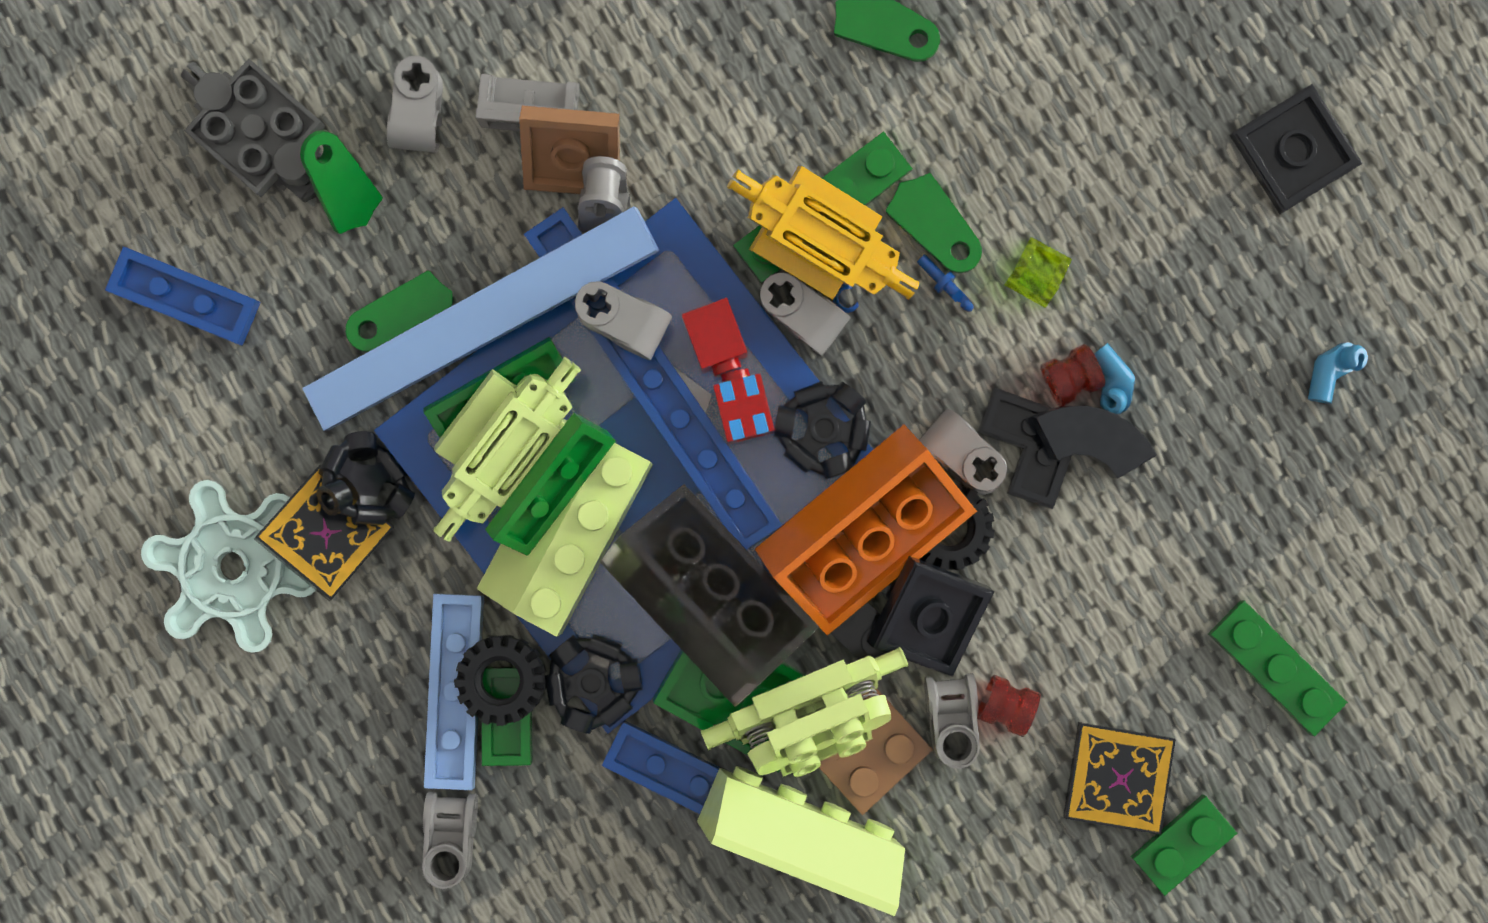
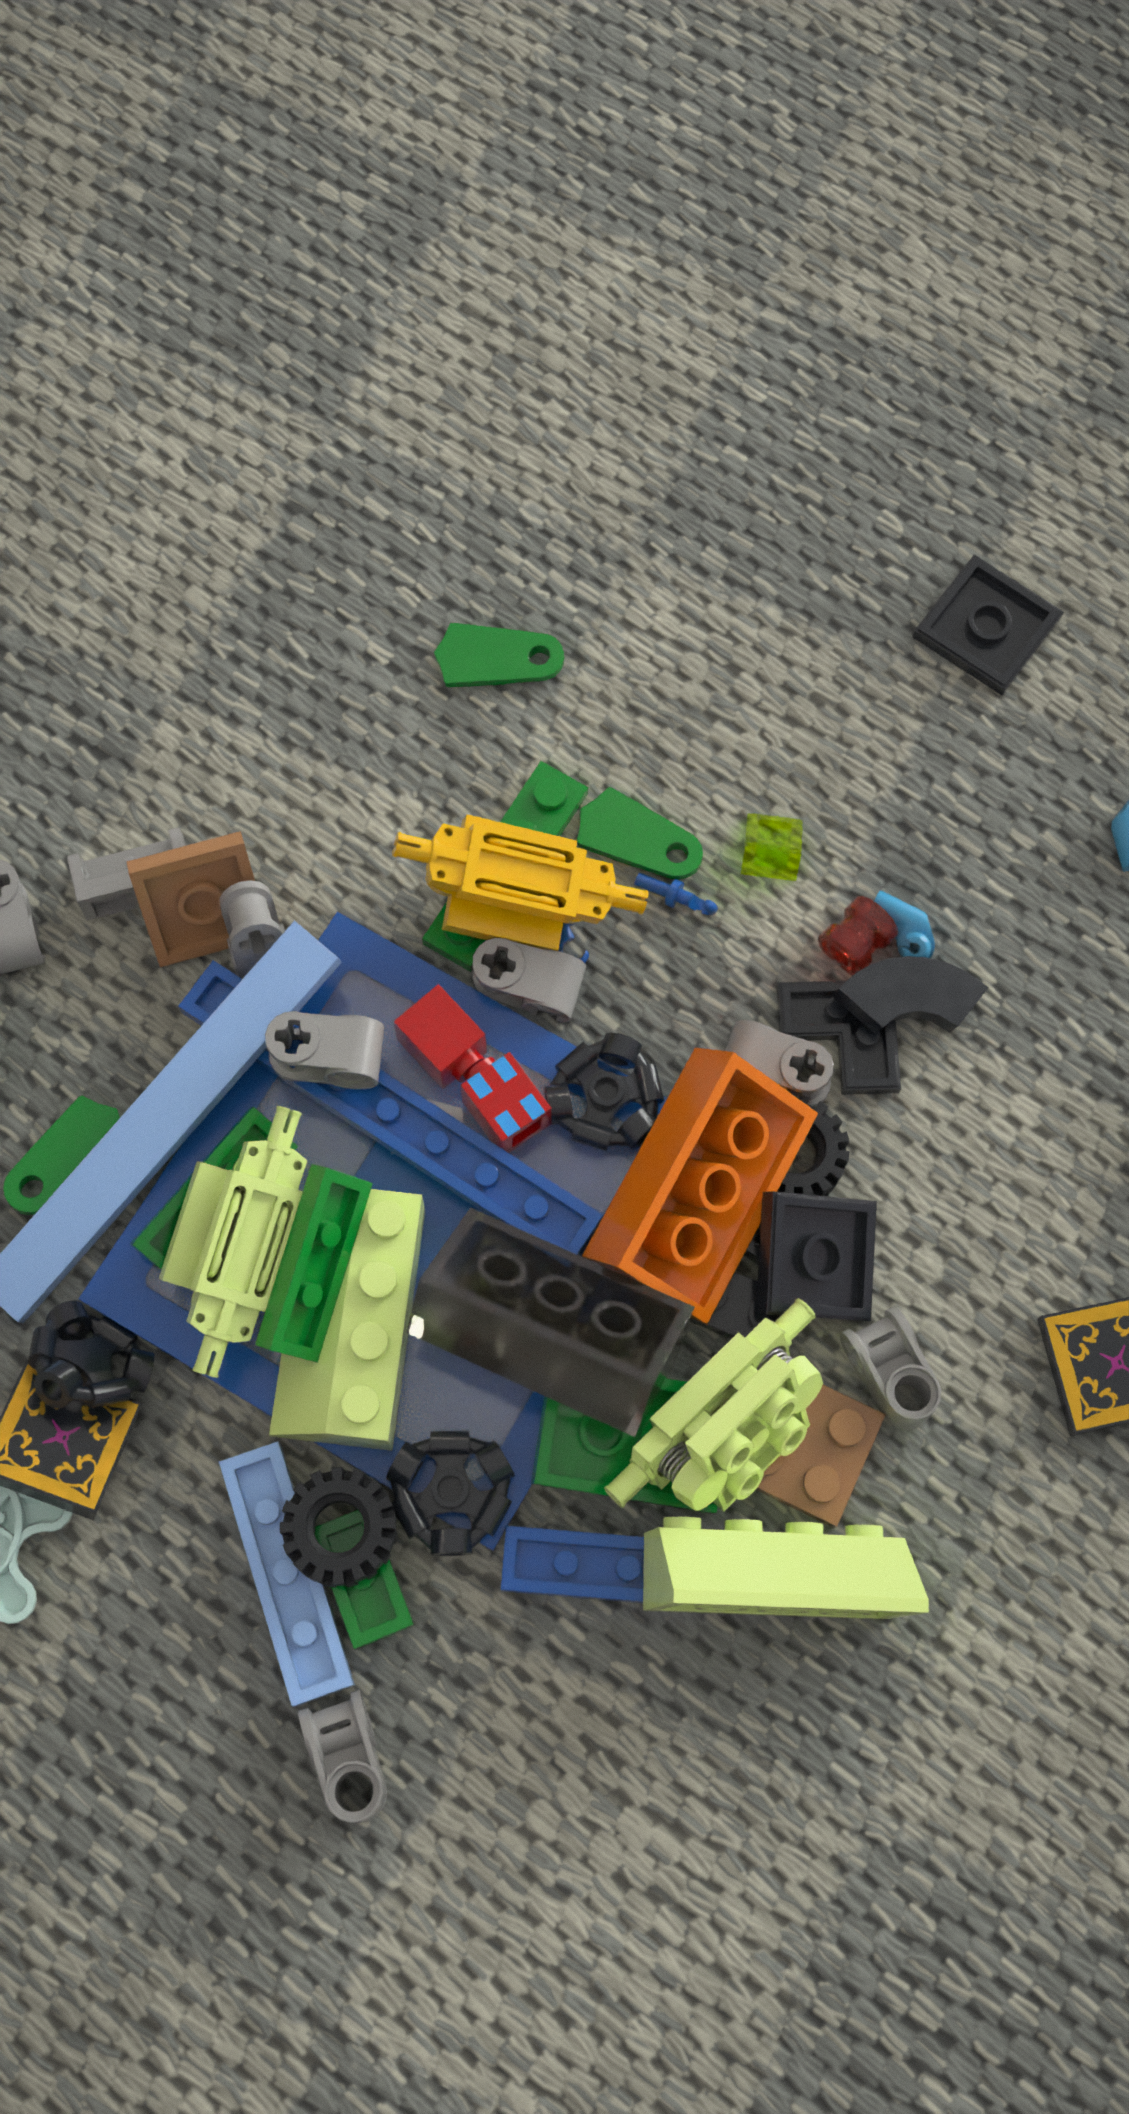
camera: 20 degrees left, 15 degrees down
(1009, 706) = (952, 1327): clear red wheel -> none

